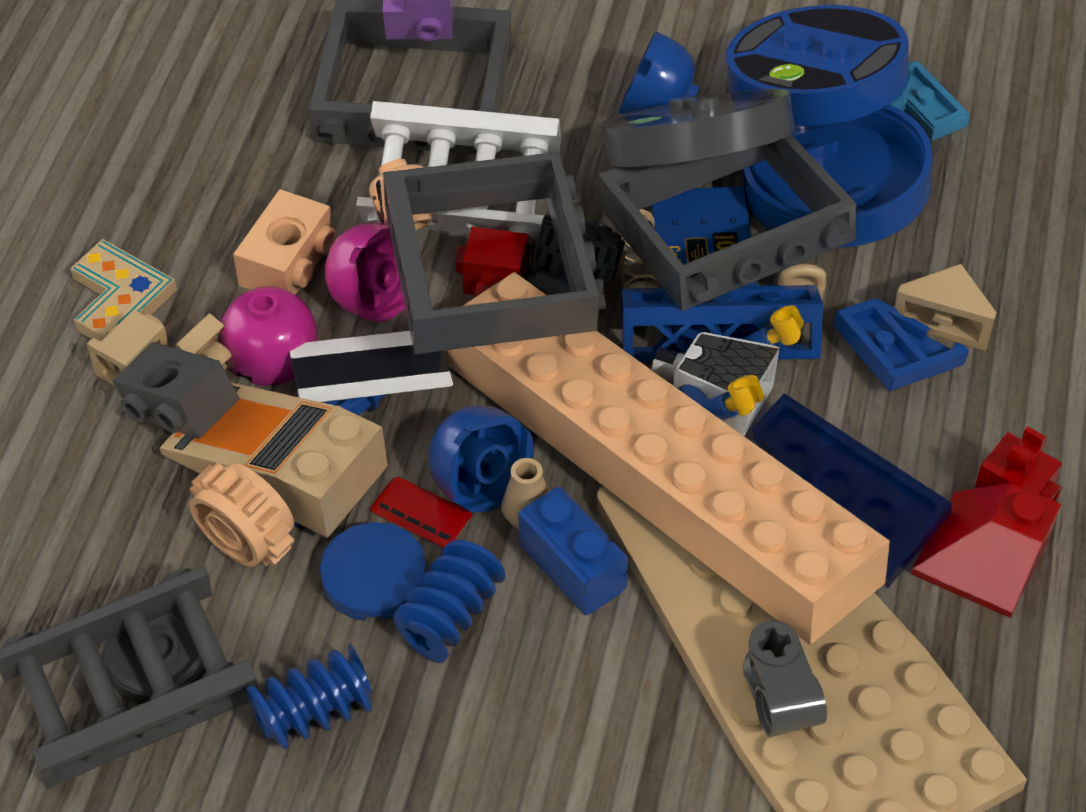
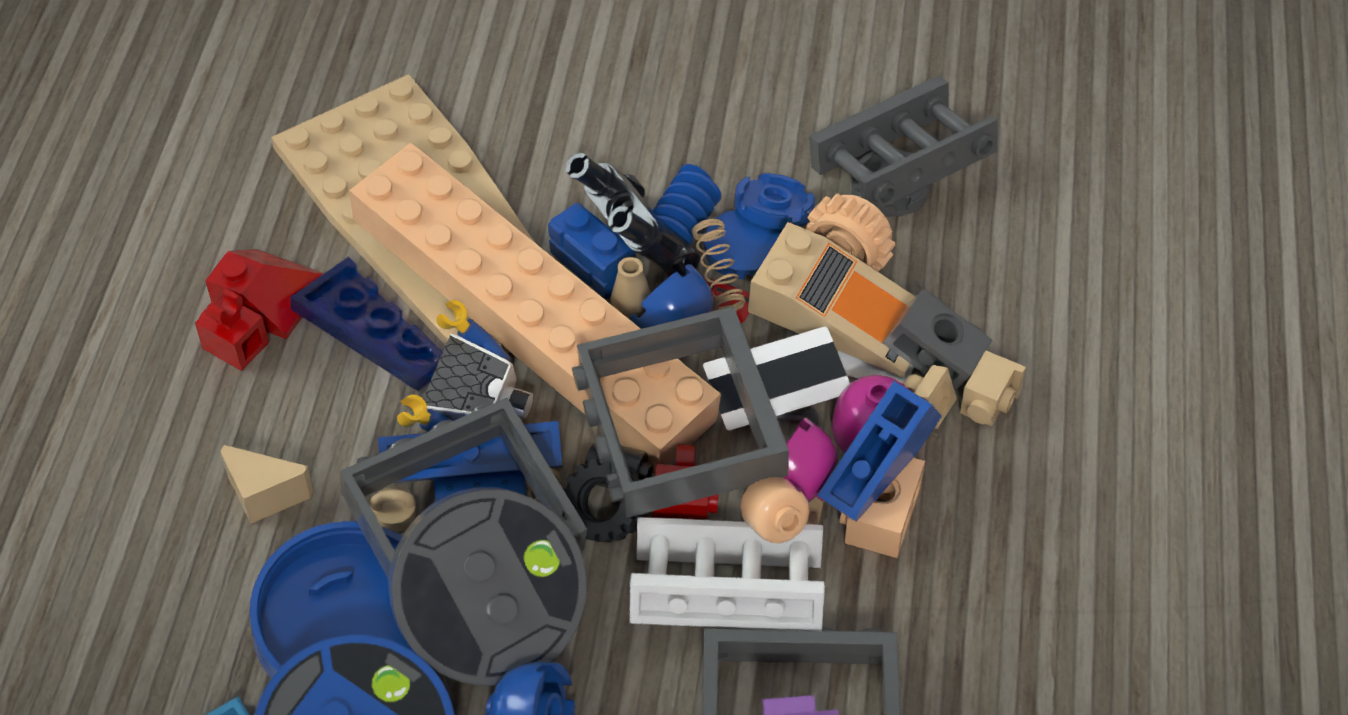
camera: 175 degrees right, 0 degrees up
(123, 286) = (1017, 464): tan tile -> none
(270, 239) = (880, 451): none -> blue slope
(311, 697) = (767, 140): blue piece -> none
(323, 612) = (773, 201): none -> blue tile
(410, 490) = (712, 235): none -> tan piece
(542, 572) = (640, 228): none -> black connector
(782, 680) = (438, 143): dark grey piece -> none
(895, 345) = (314, 441): blue wing -> none

